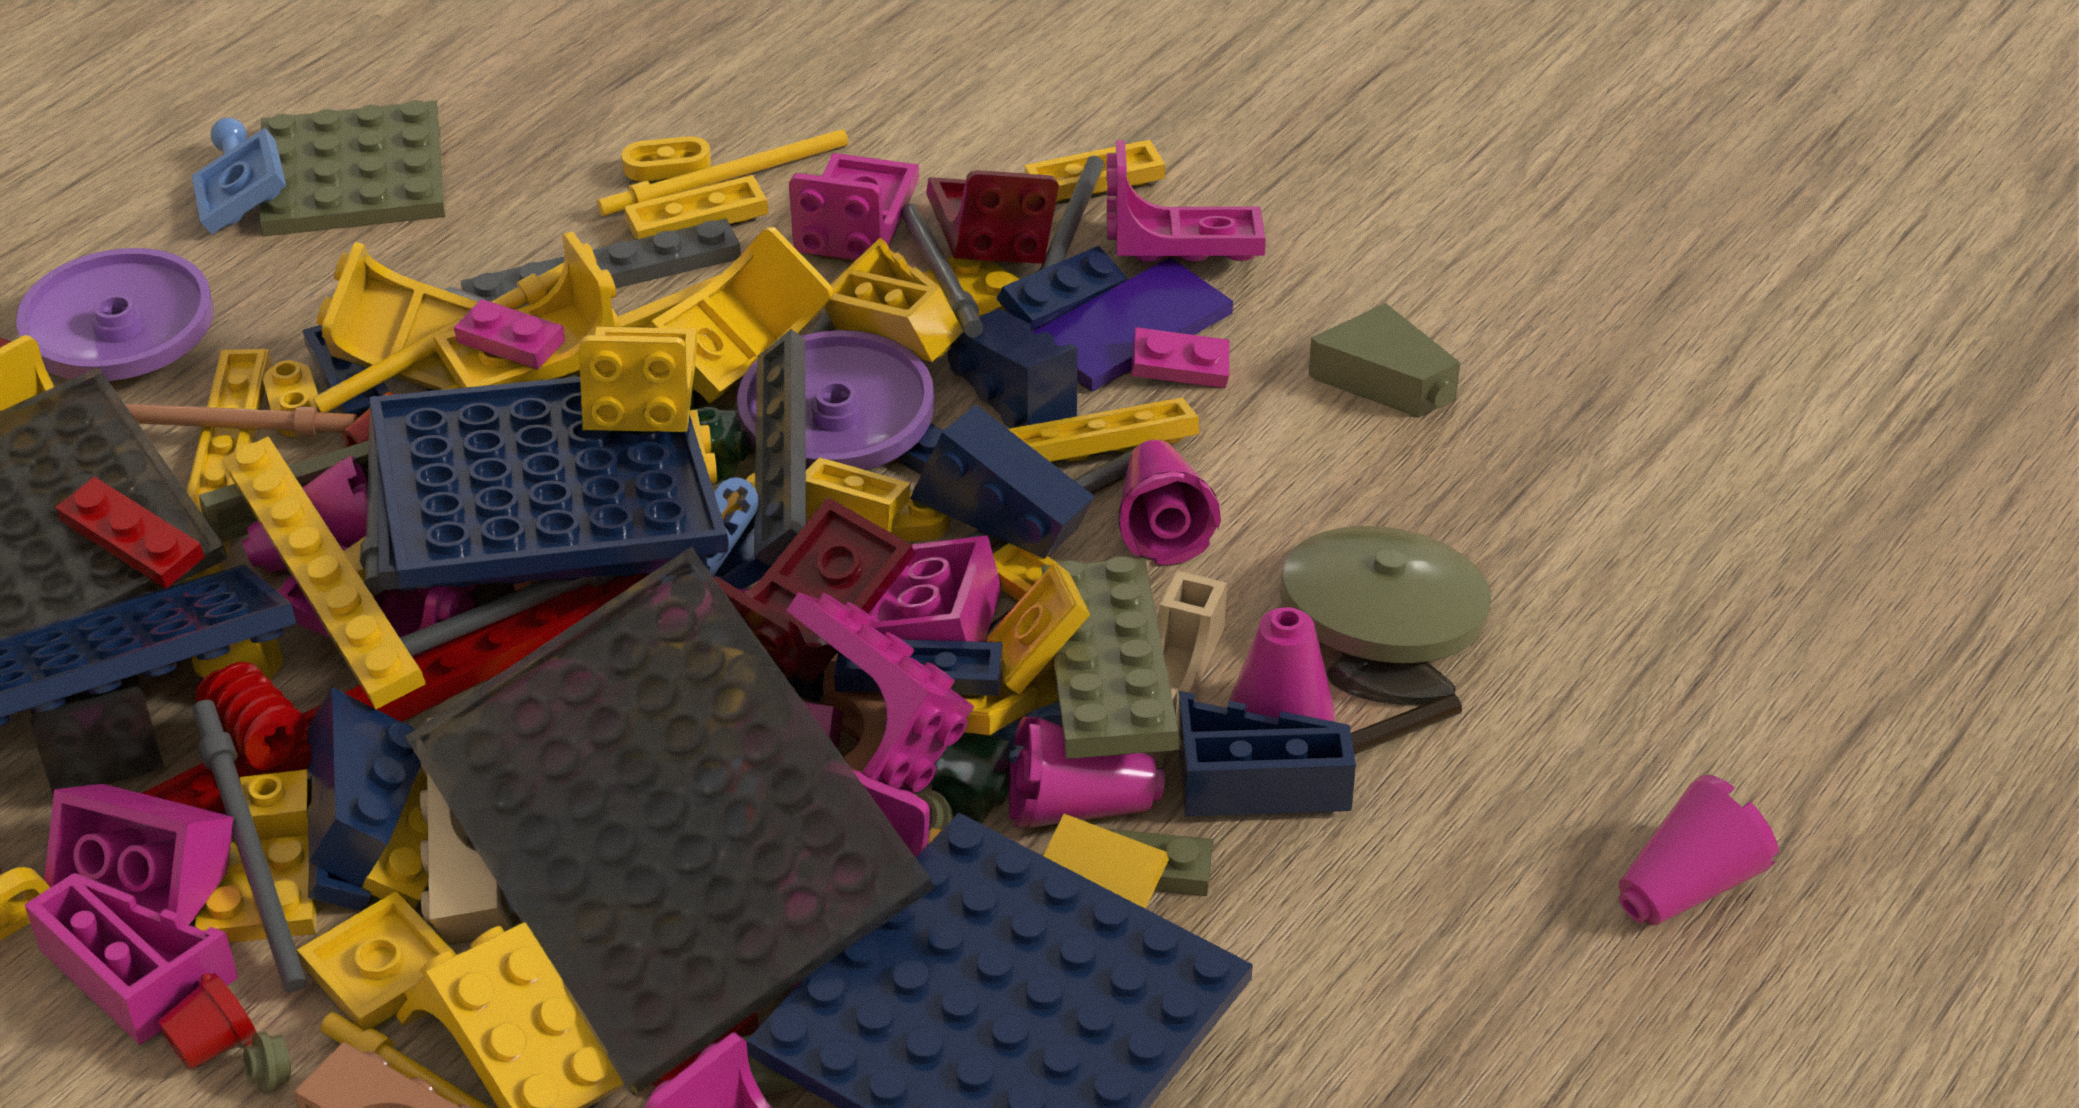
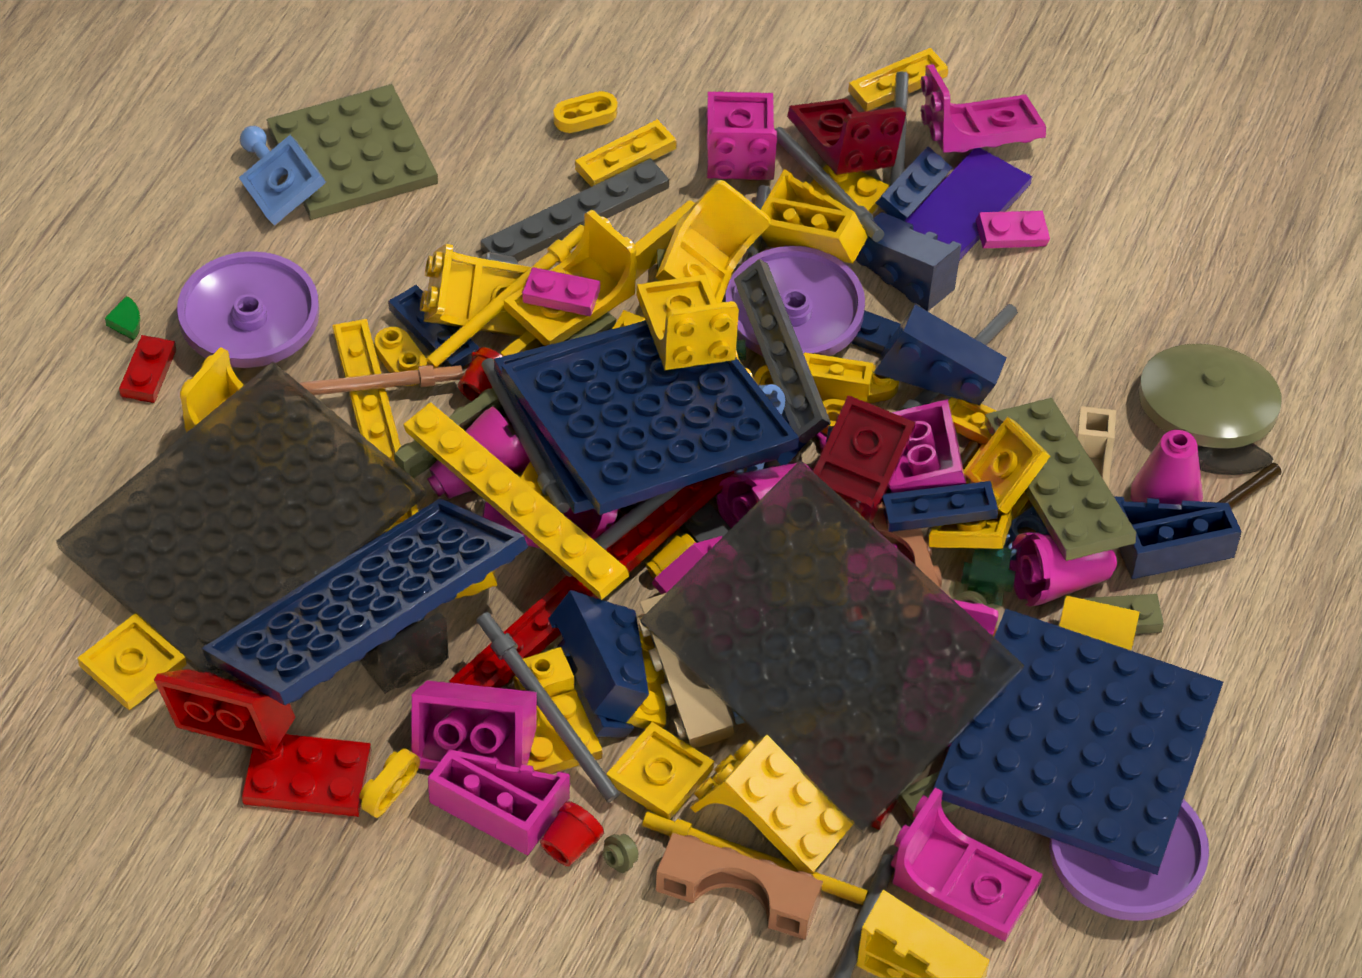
camera: 15 degrees left, 10 degrees up
(130, 532) = (358, 489): red plate -> none
(254, 714) = (512, 613): red piece -> none
(722, 172) = (582, 144): yellow bar -> none
(919, 699) = (959, 527): dark pink bracket -> none
(1111, 430) = (987, 295): yellow plate -> none
(1166, 506) = (1046, 349): dark pink cone -> none
(1386, 362) = (1154, 212): olive slope -> none

